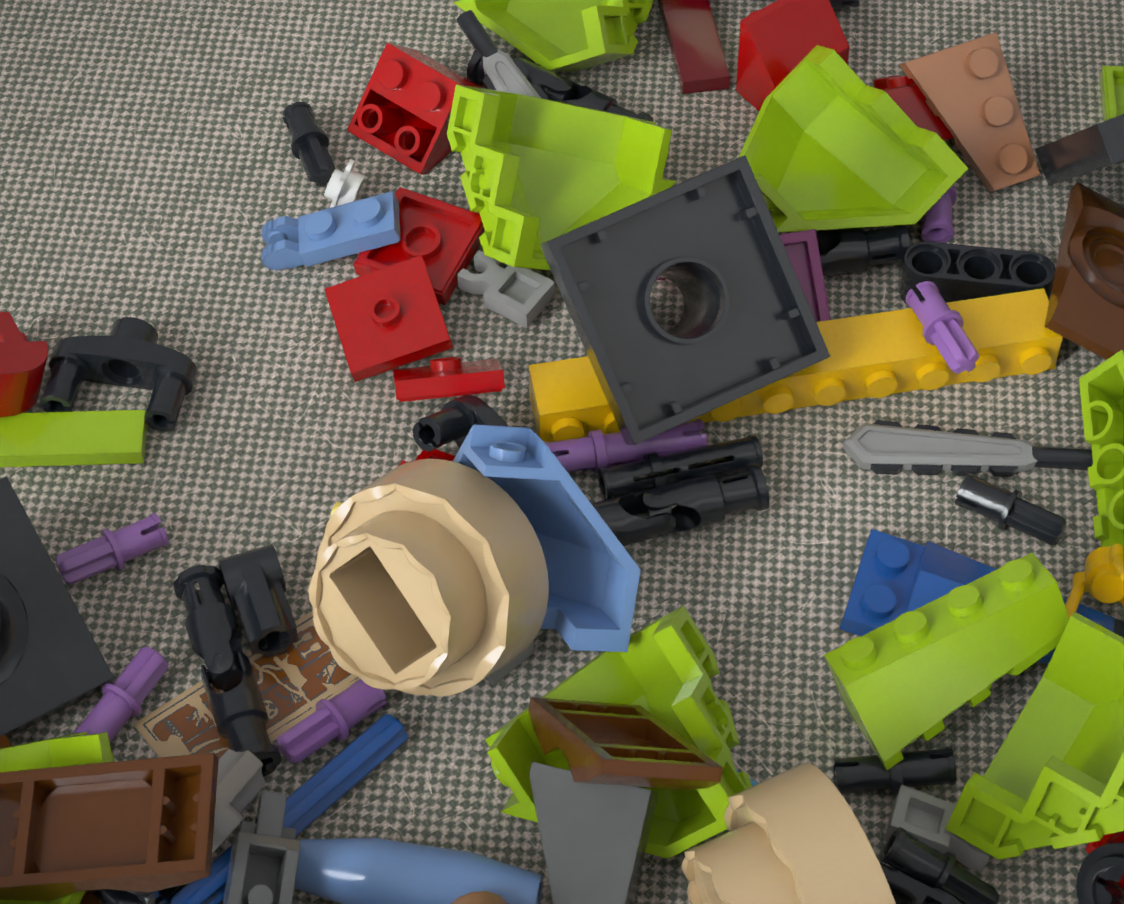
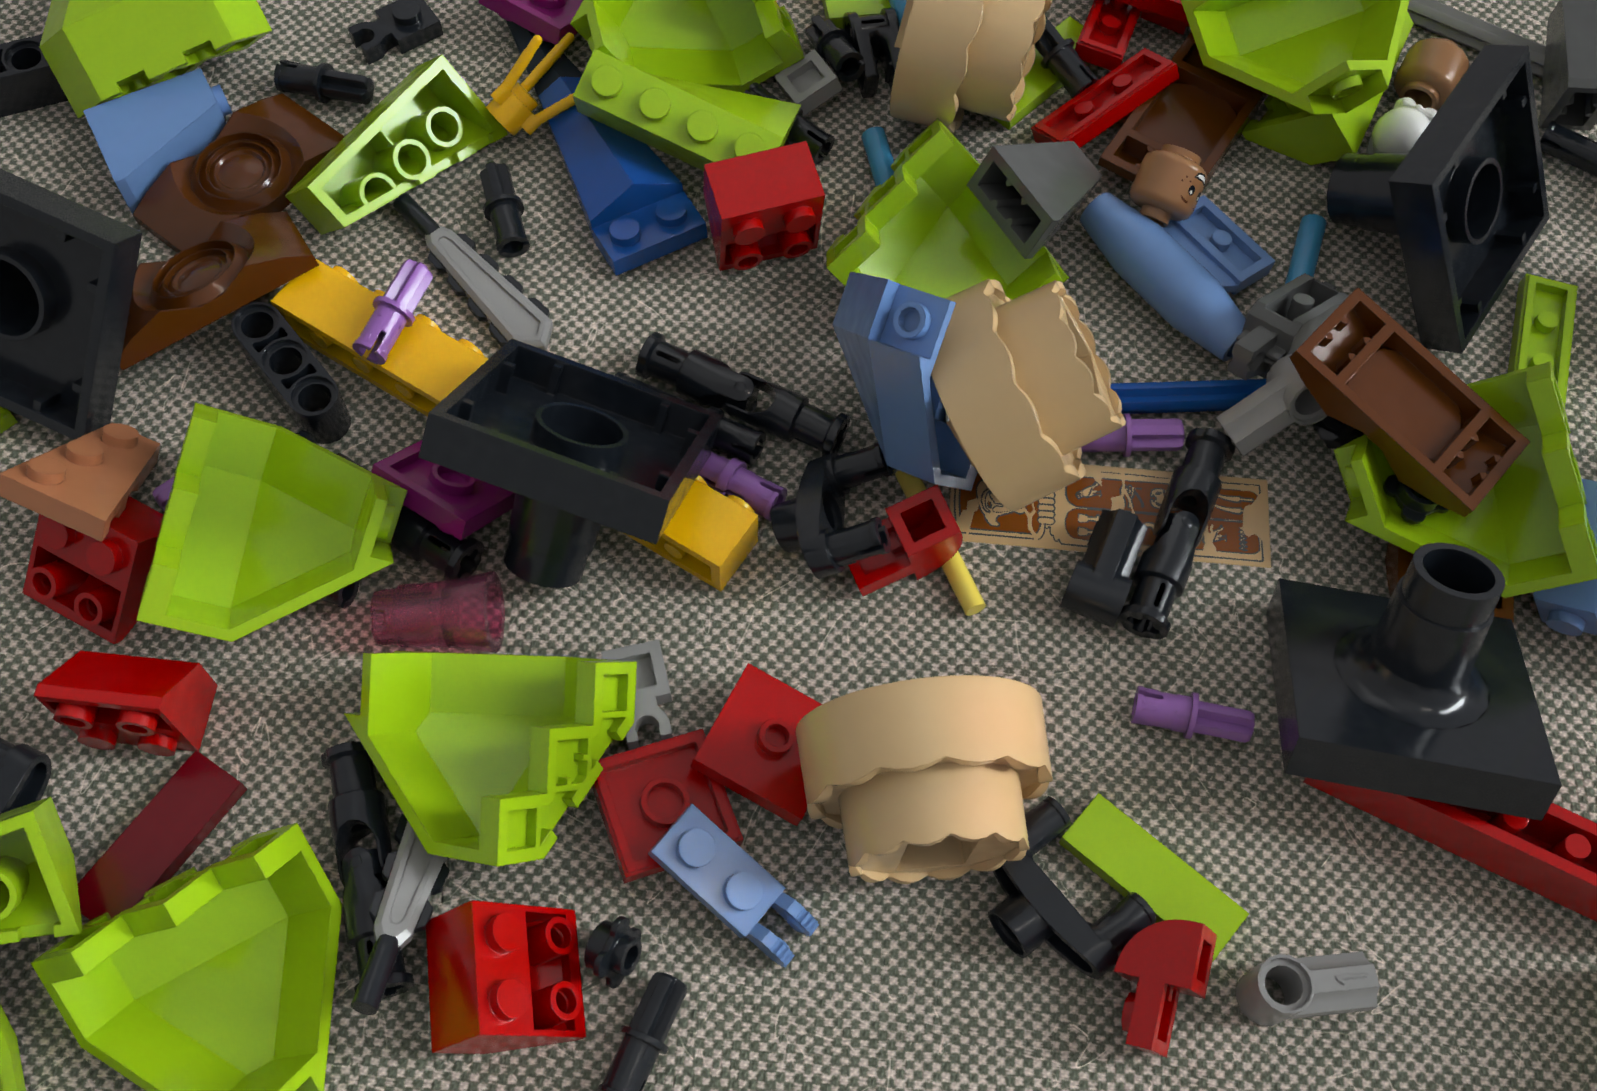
camera: 140 degrees left, 10 degrees up
(126, 694) = (1263, 575): medium lavender axle -> none
(251, 309) = (927, 774): none -> tan piece
(344, 186) = (669, 937): white plate -> none
(371, 160) = (613, 950): none -> black plate
(448, 378) = (791, 618): red plate -> none
(620, 745) = (979, 189): reddish brown slope -> none
(793, 623) = (763, 206): none -> red slope

